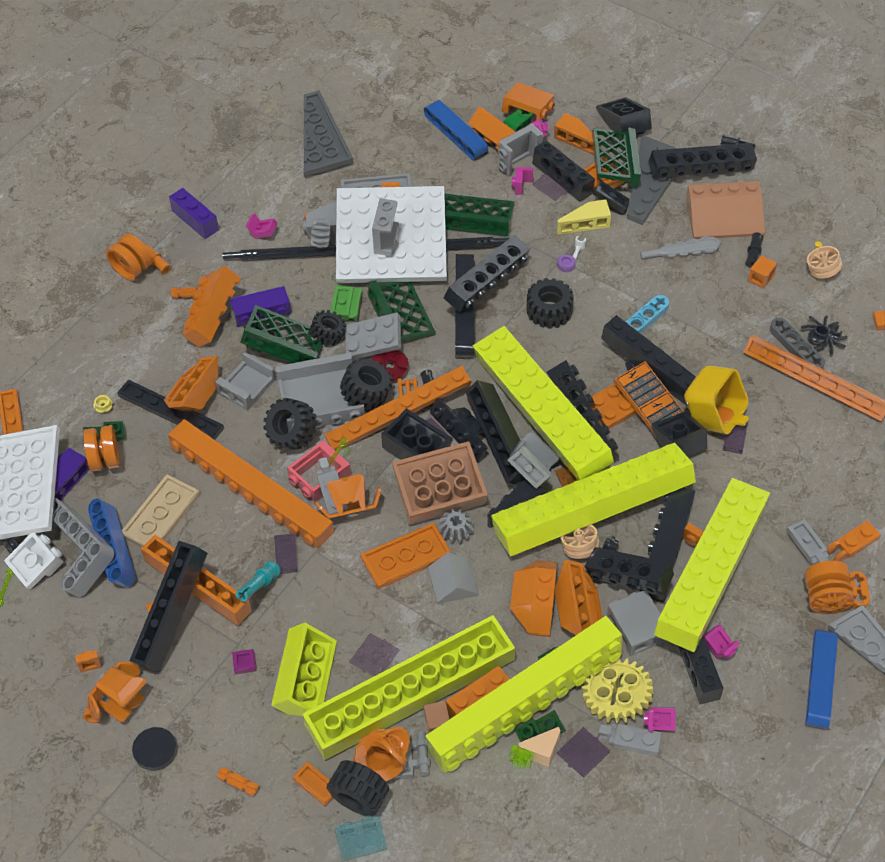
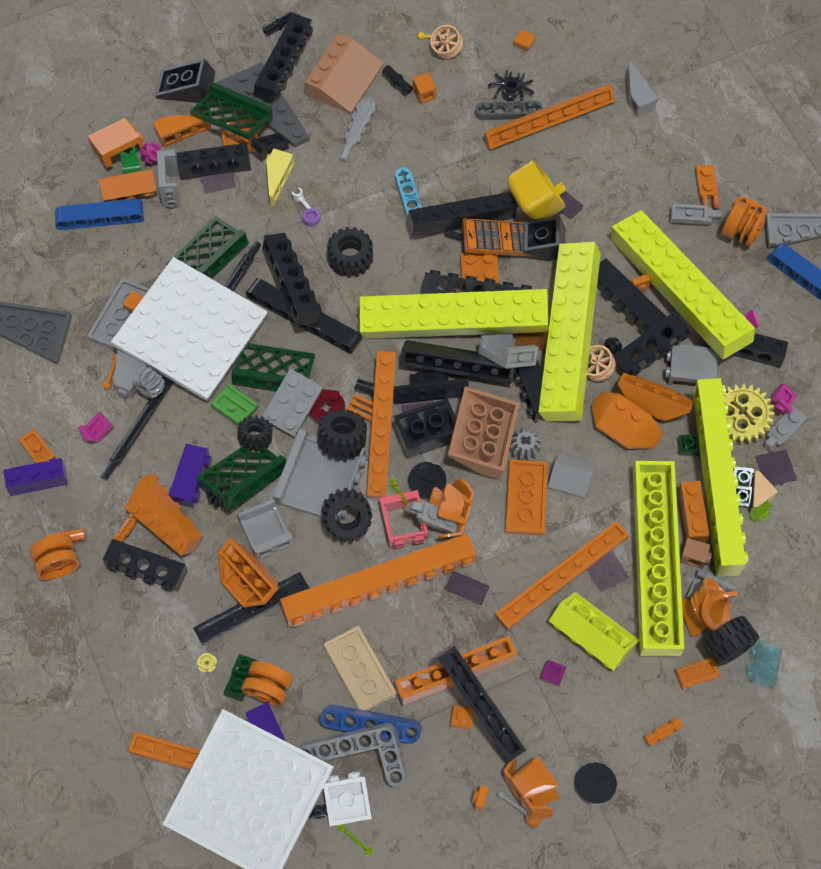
camera: 60 degrees left, 10 degrees up
(162, 320) = (118, 551): none -> black brick
(221, 201) = (36, 447): none -> orange plate
(261, 578) = (488, 616): teal pin -> none
(345, 620) = (561, 575): none -> orange plate
(374, 469) = (426, 477): none -> black tile
(384, 228) = (197, 324): light grey panel -> none
(523, 174) = (195, 197): dark pink bracket -> none

